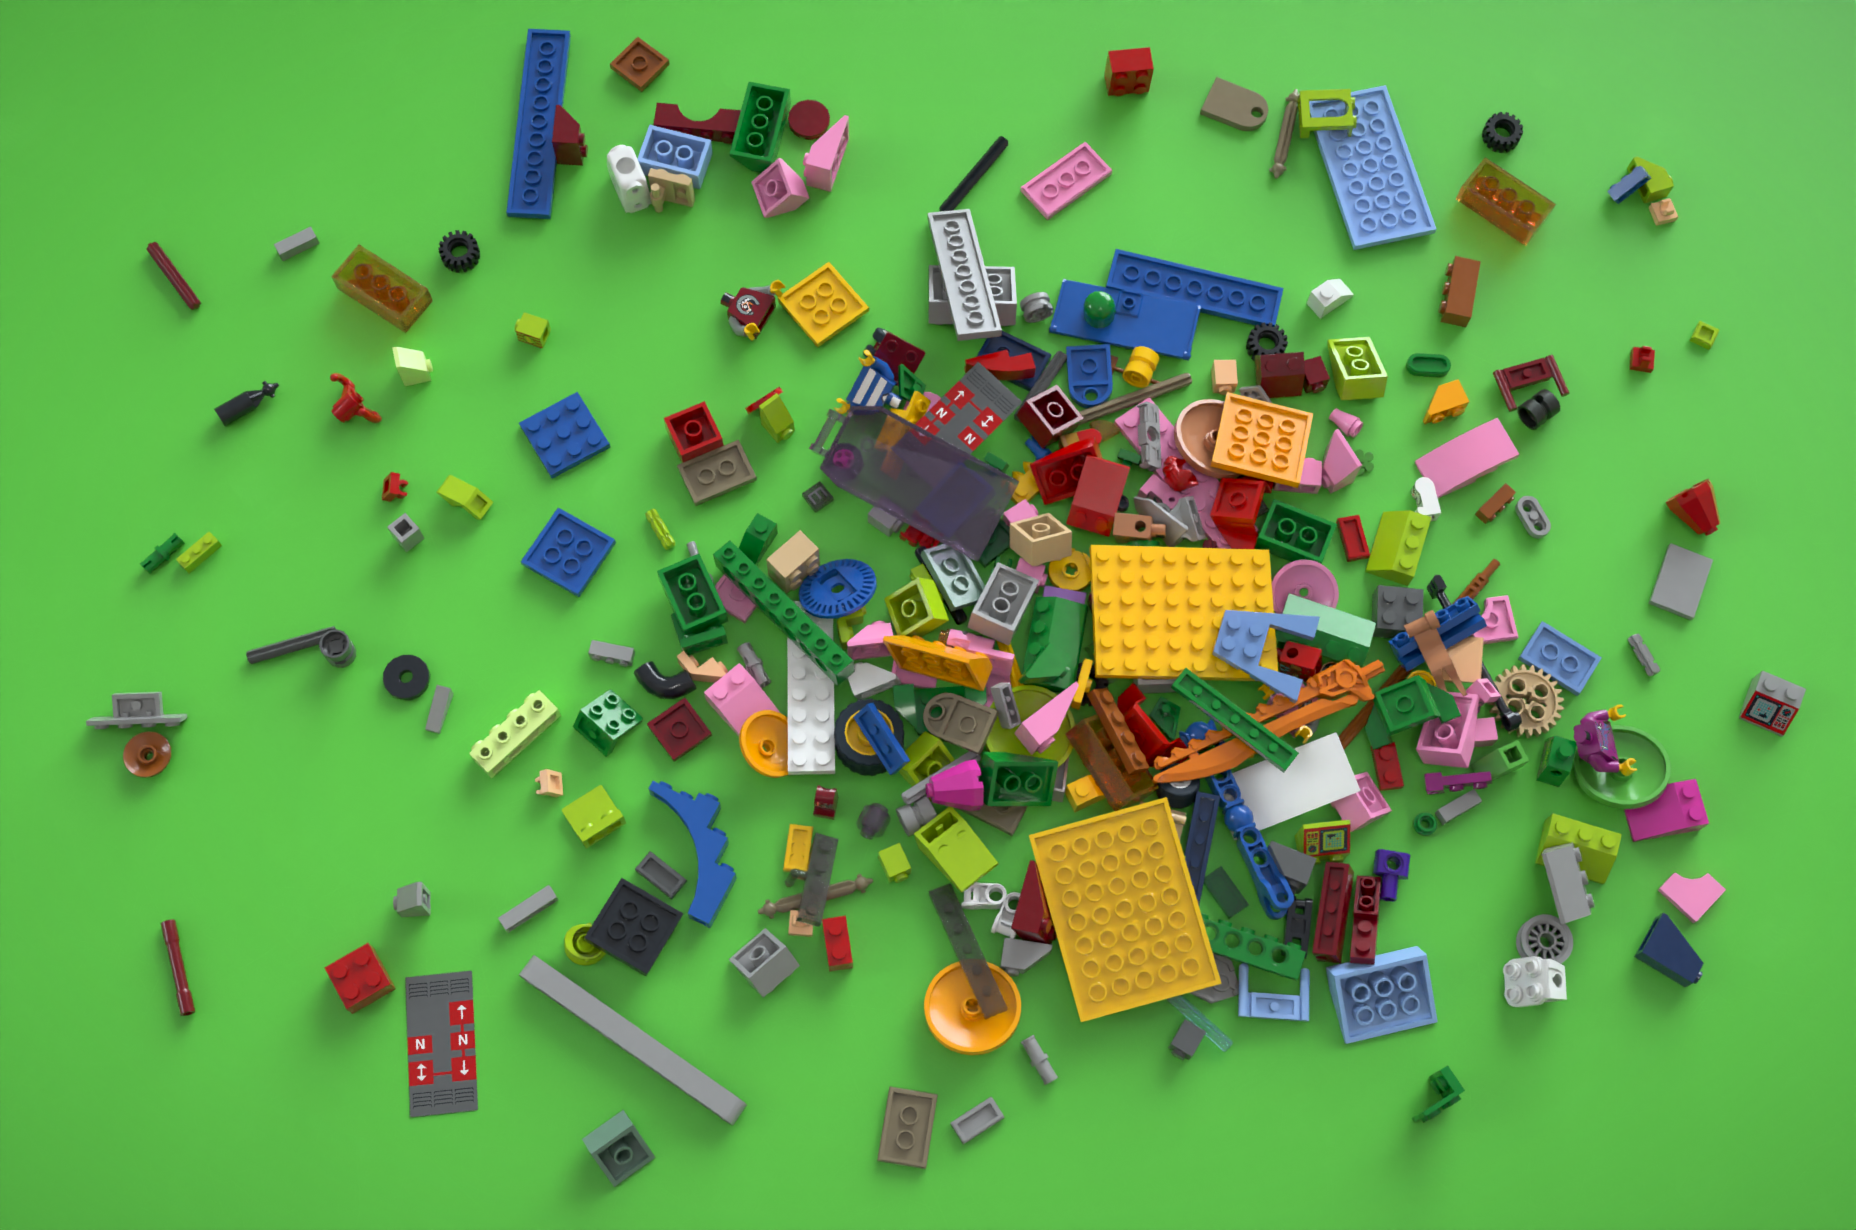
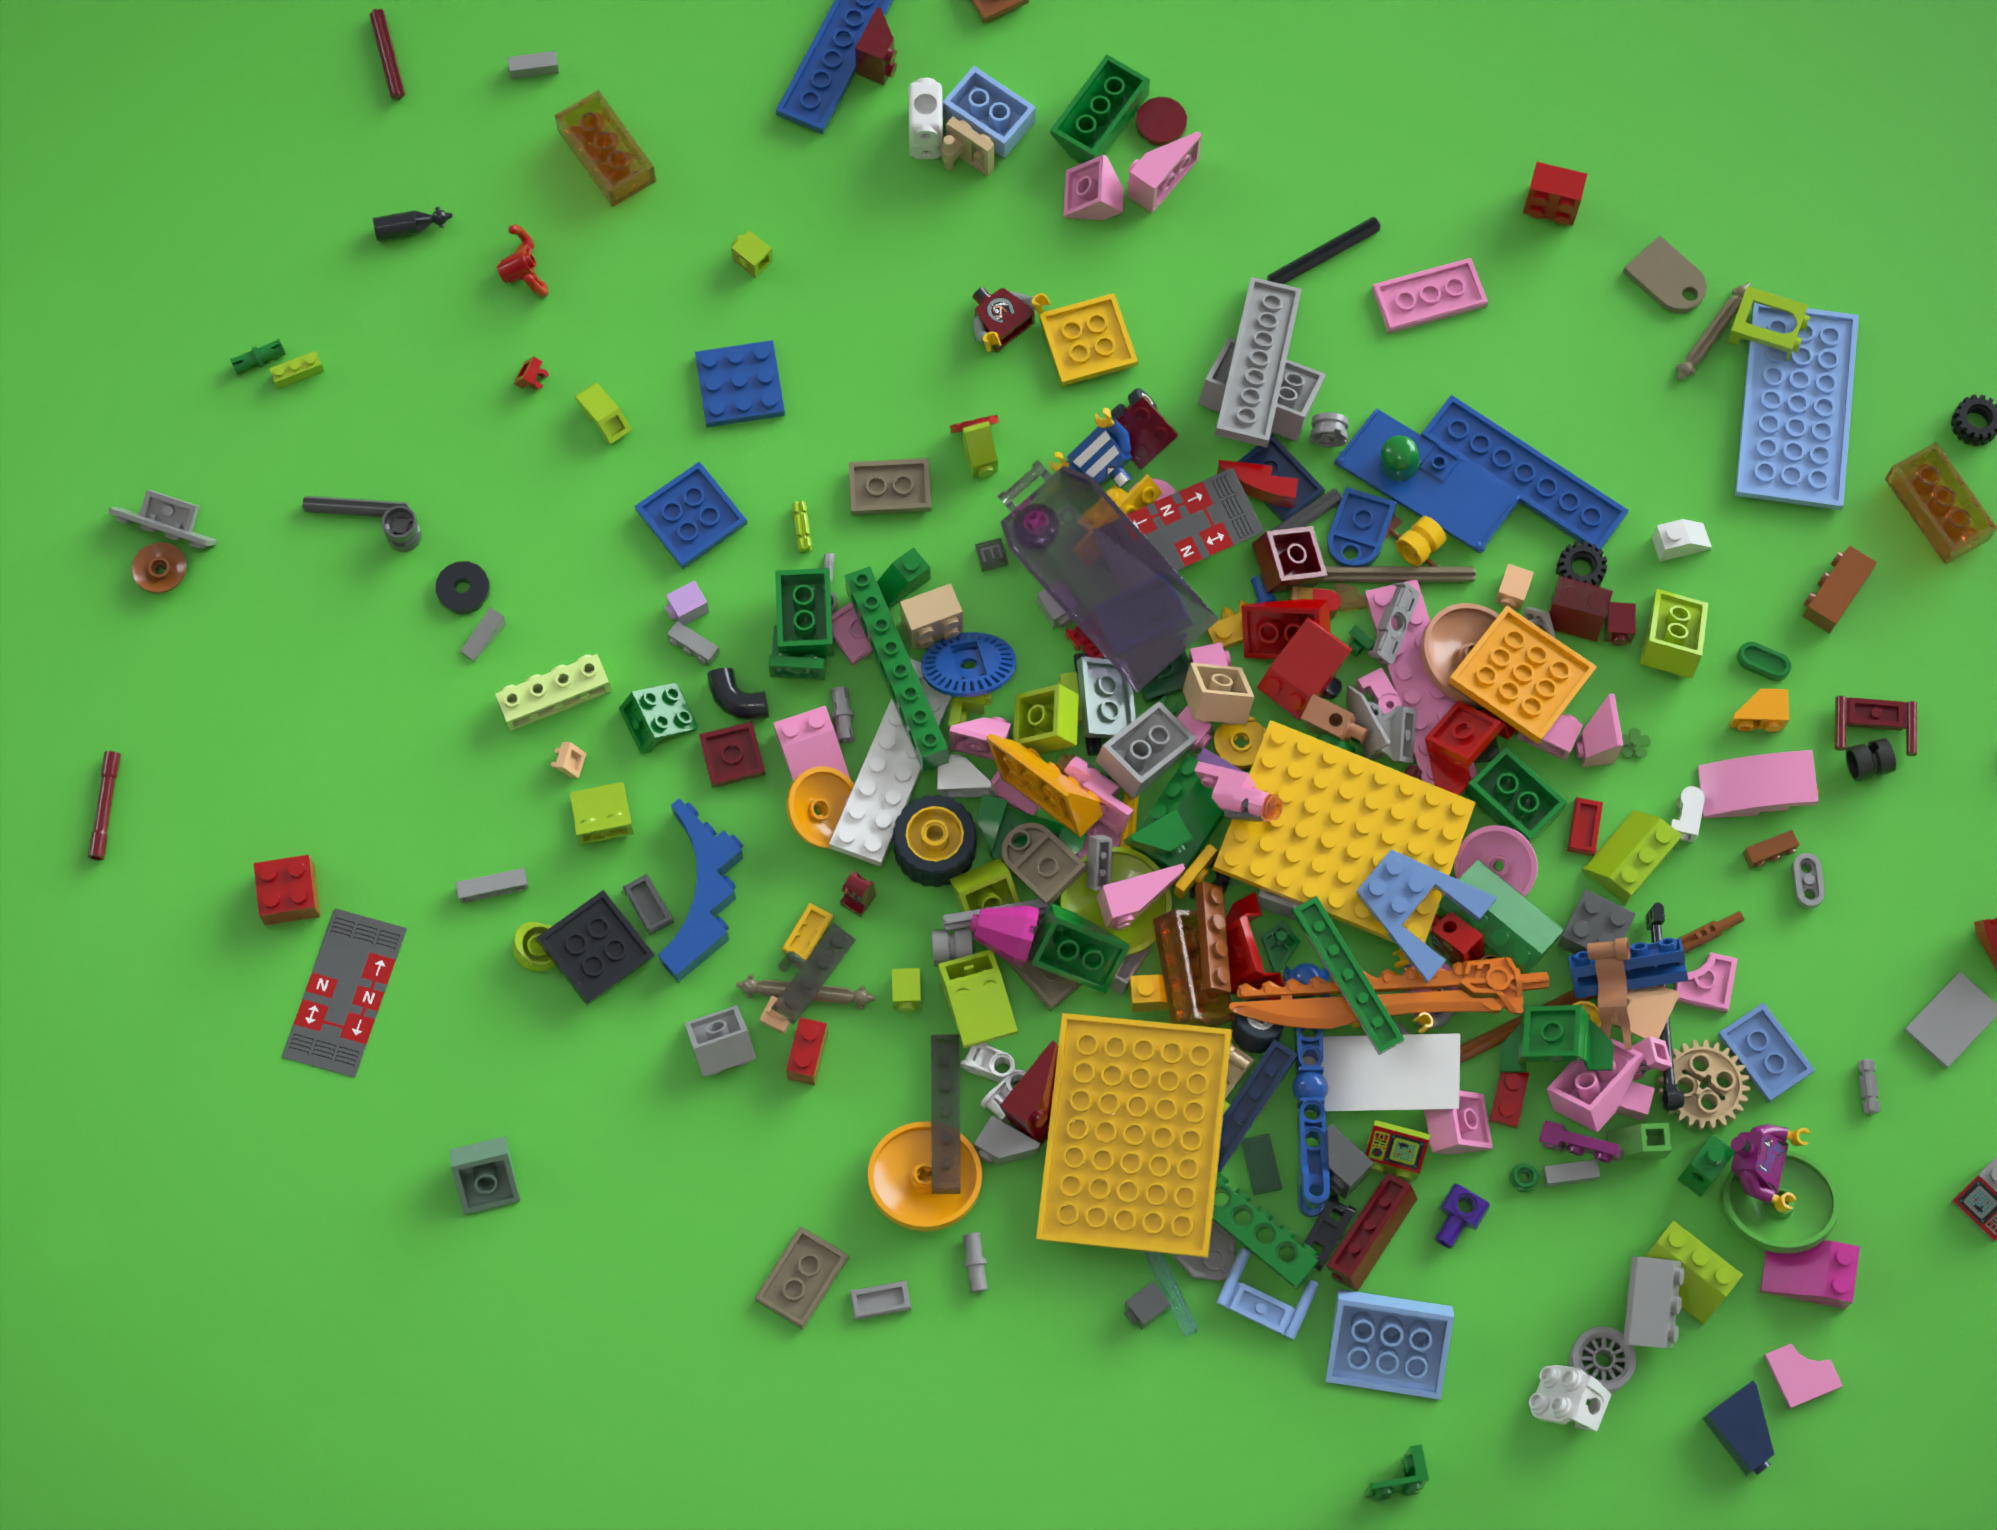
camera: 25 degrees right, 0 degrees up
(405, 532) = (523, 428): brick -> none
(412, 366) = (603, 246): yellowish green slope -> none
(413, 900) = (374, 829): light grey slope -> none
(459, 240) = (707, 149): black tyre -> none
(594, 623) = (686, 603): none -> lavender brick
(633, 1040) = (546, 1068): light grey beam -> none
(693, 432) = (881, 431): red brick -> none
(707, 672) = (789, 702): light nougat slope -> none
(718, 128) = (1049, 95): dark red arch -> none
(873, 821) = (902, 934): head -> none
(881, 738) = (943, 845): blue plate -> none
(909, 383) = (1145, 464): green piece -> none
(996, 462) = (1206, 590): green tile -> none
(1093, 612) = (1237, 795): none -> bright pink plate
(1177, 477) = (1405, 678): red hair -> none
(1346, 422) = (1636, 693): bright pink cone -> none
(1365, 920) = (1406, 1256): dark red slope -> none

